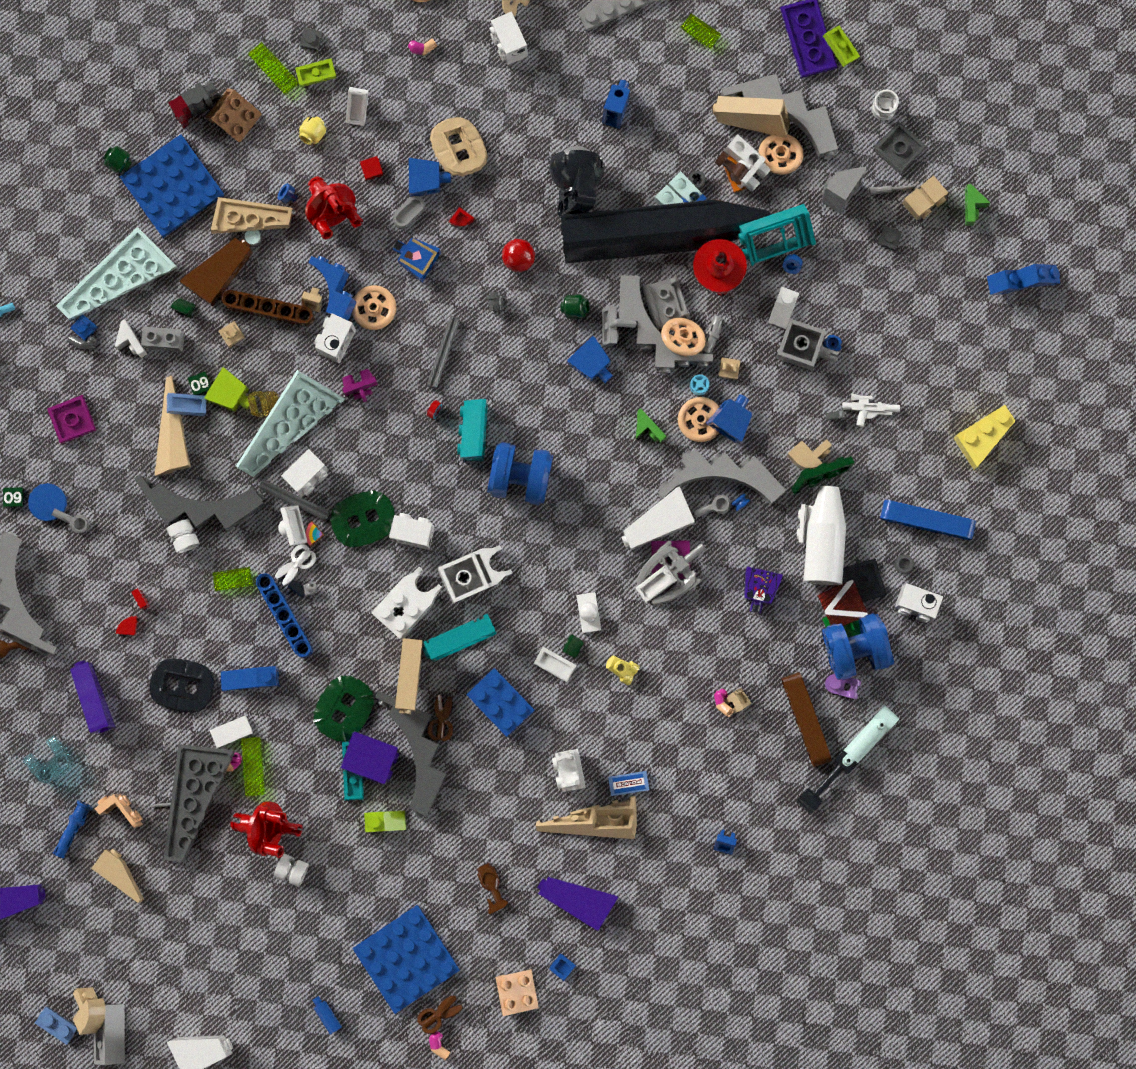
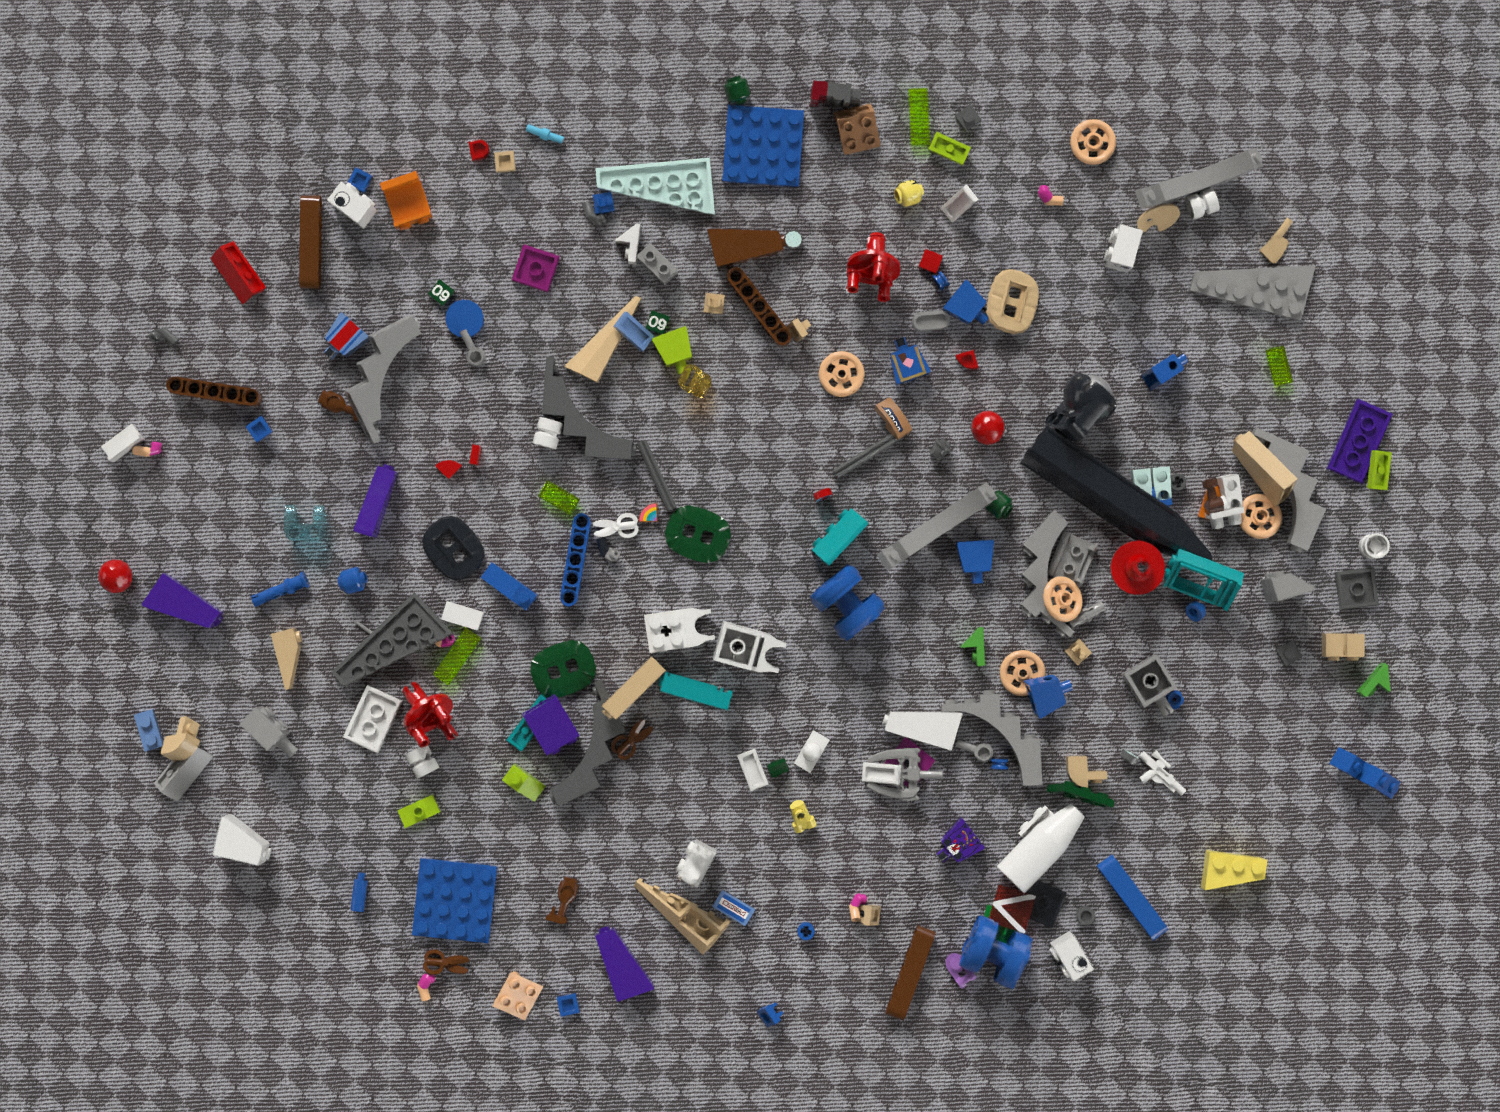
camera: 30 degrees right, 5 degrees up
(108, 803) = (335, 603): light nougat bracket -> none
(122, 774) = (352, 580): none -> blue head
(150, 945) = (268, 730): none -> light grey brick
(183, 307) = (694, 251): dark green slope -> none
(226, 870) = (372, 719): none -> white tile
(249, 216) = (802, 220): tan wing -> none
(287, 193) = (847, 227): blue tile -> none
(292, 416) = (707, 409): light aqua wing -> none
(292, 525) = (638, 495): white tile -> none
(305, 473) = (682, 463): white brick -> none
(321, 912) = (419, 811): none -> lime plate
(334, 338) = (792, 375): white brick -> none
(335, 275) = (832, 325): blue arch -> none
(351, 387) = (788, 429): magenta hips -> none
(391, 175) = (941, 280): none -> blue bush
(412, 531) = (726, 577): white brick -> none
(440, 306) = (895, 419): none -> medium nougat slope
(500, 702) = (686, 765): blue brick -> none
(541, 359) = (937, 526): none -> light grey arch
(610, 322) = (1015, 541): light grey plate -> none
(699, 382) = (1044, 646): medium azure wheel -> none
(700, 748) = (810, 926): none -> blue bush
(783, 308) = (1160, 639): white slope -> none
(851, 756) = (920, 1028): piece -> none
(888, 189) = (1319, 613): light grey piece -> none

